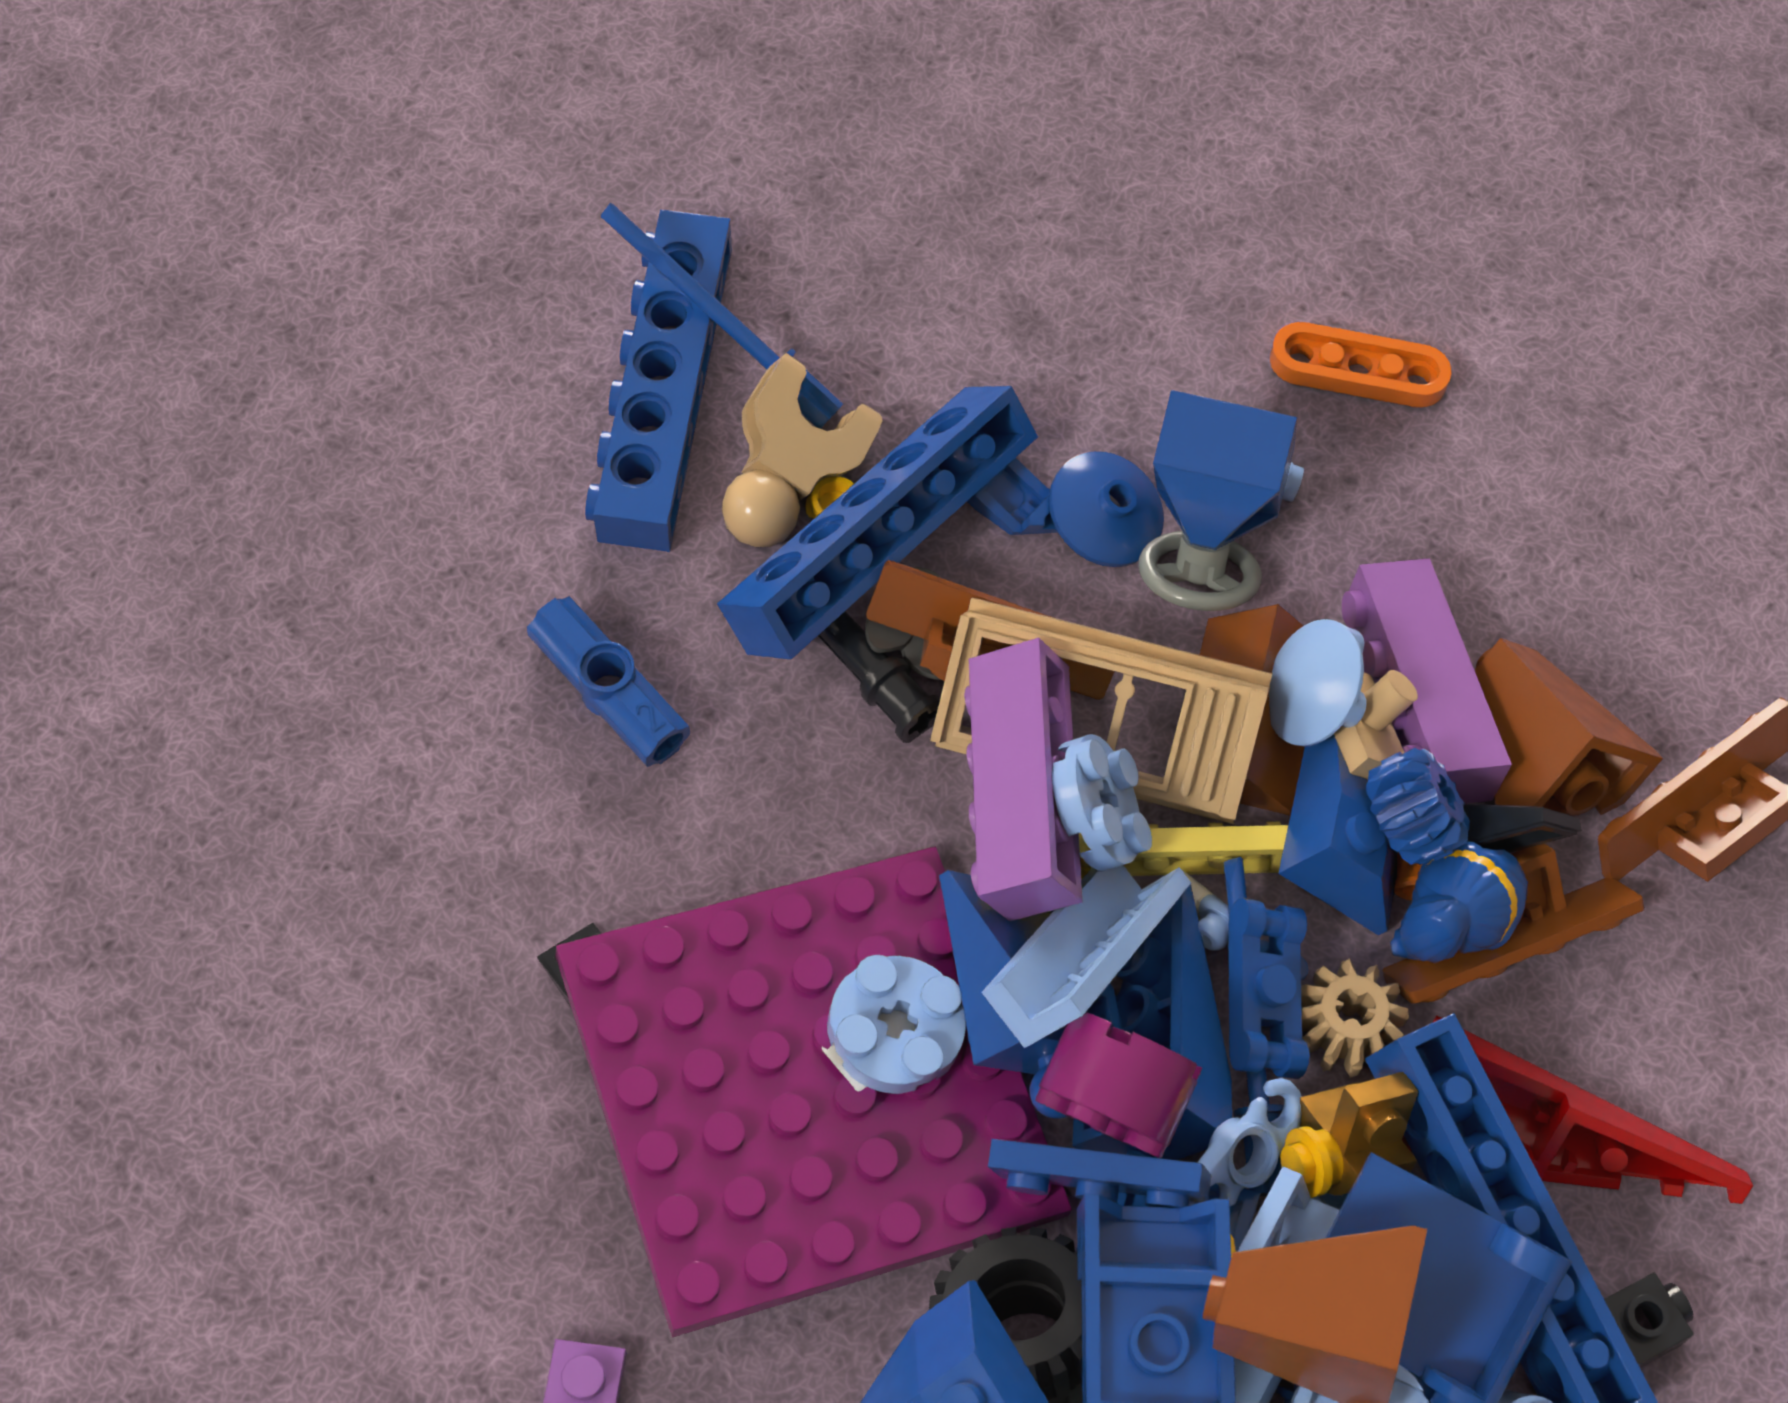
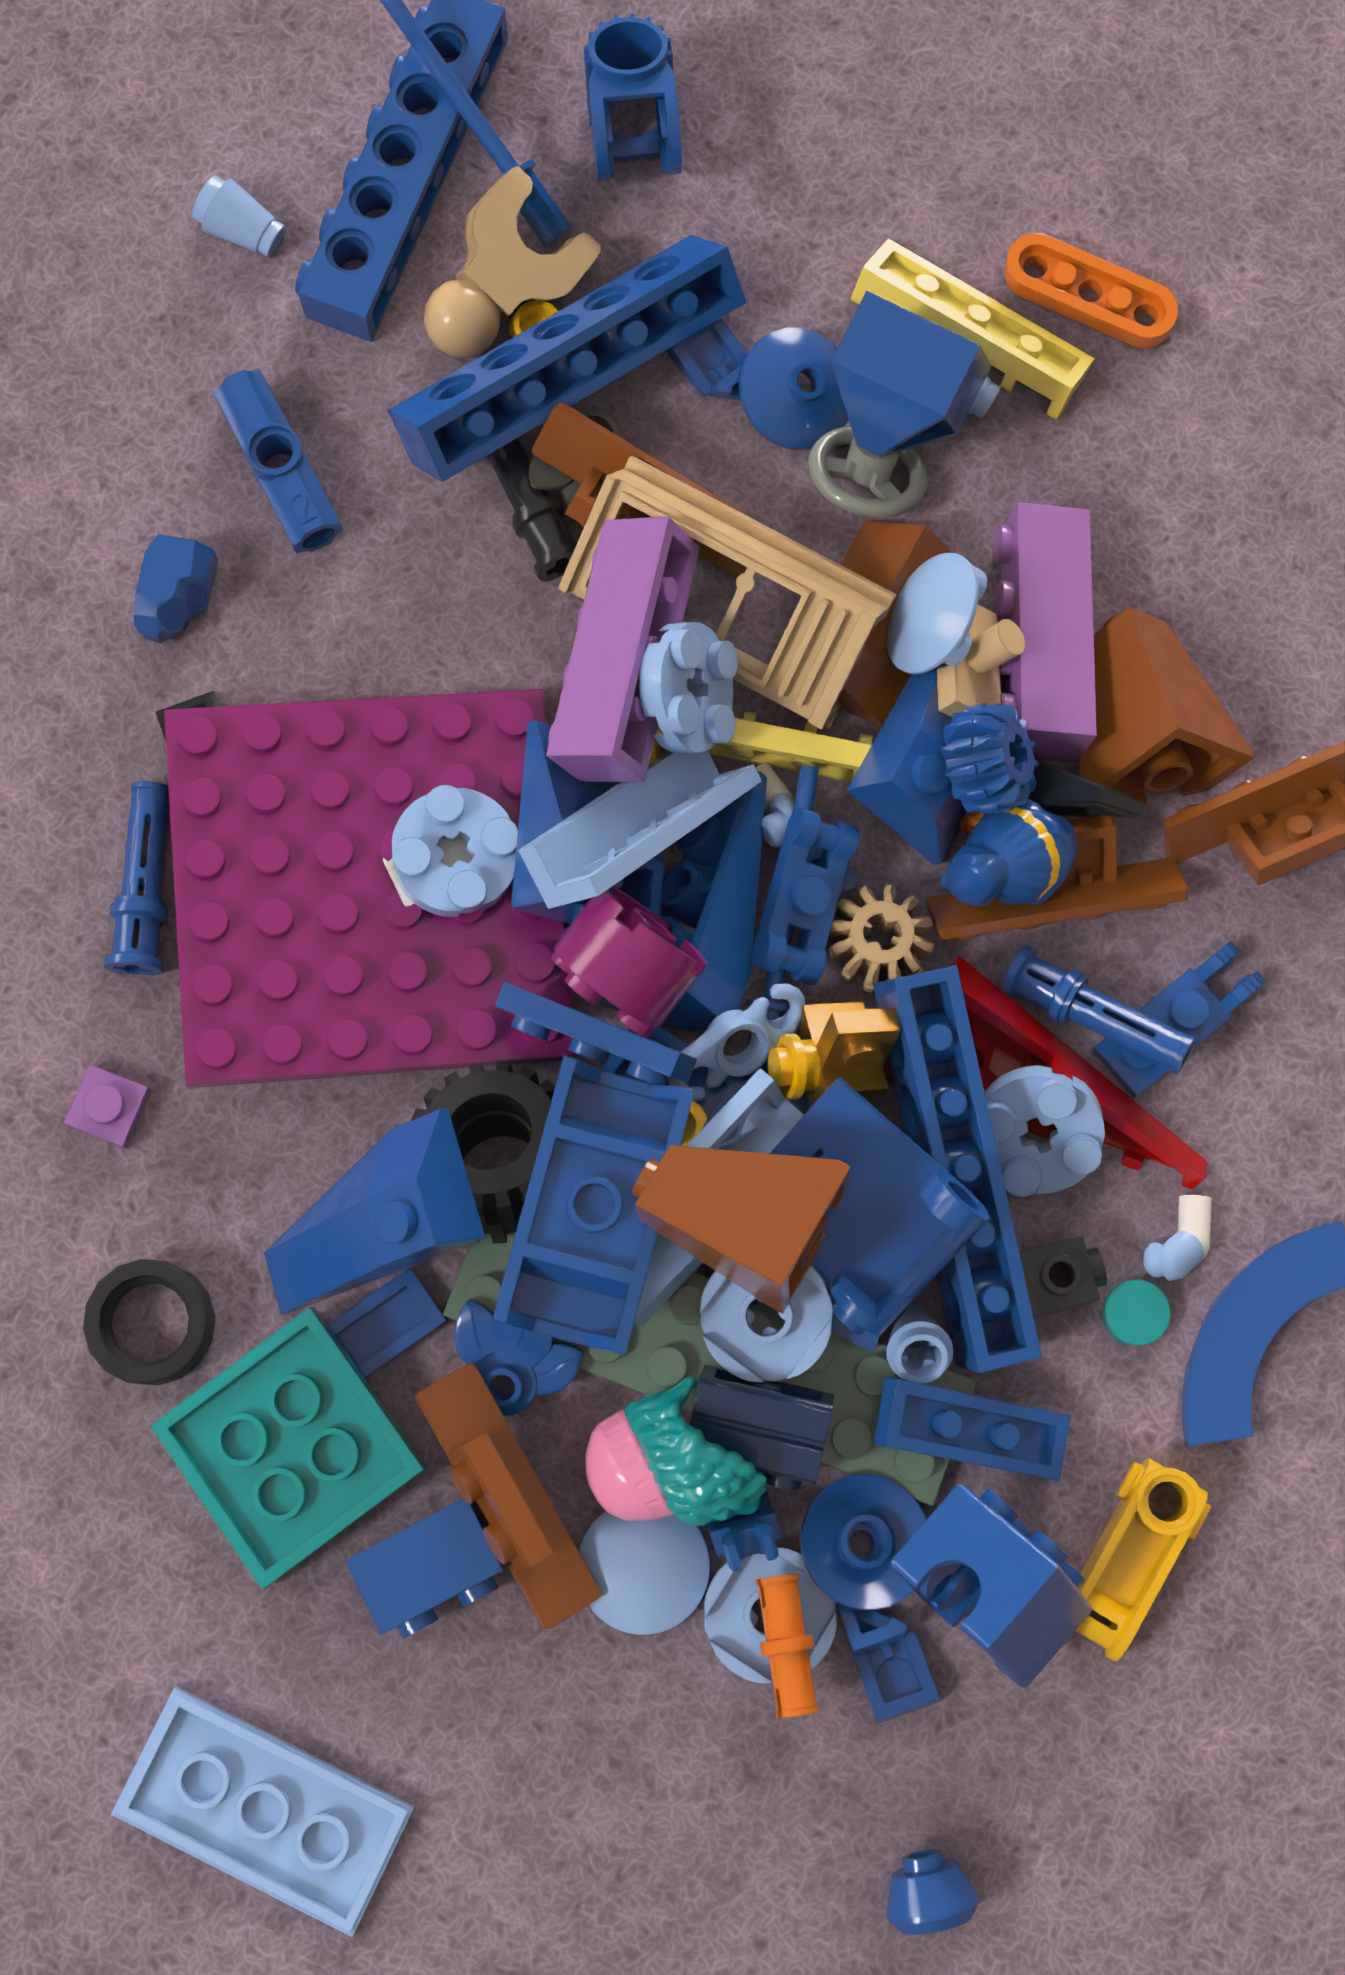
camera: 15 degrees right, 15 degrees up
(508, 460) = (236, 217): none -> light blue cone
(530, 824) = (172, 586): none -> blue rock
(574, 1166) = (144, 912): none -> blue pin
(868, 240) = (628, 62): none -> blue piece
(1319, 429) = (1008, 339): none -> light yellow hinge
(1560, 1033) = (1070, 998): none -> blue pin
(1615, 1176) = (1053, 1099): none -> light blue plate
(1667, 1039) = (1185, 1007): none -> blue hinge
(1729, 1344) = (1136, 1313): none -> teal tile
(1758, 1261) = (1187, 1246): none -> light blue arm

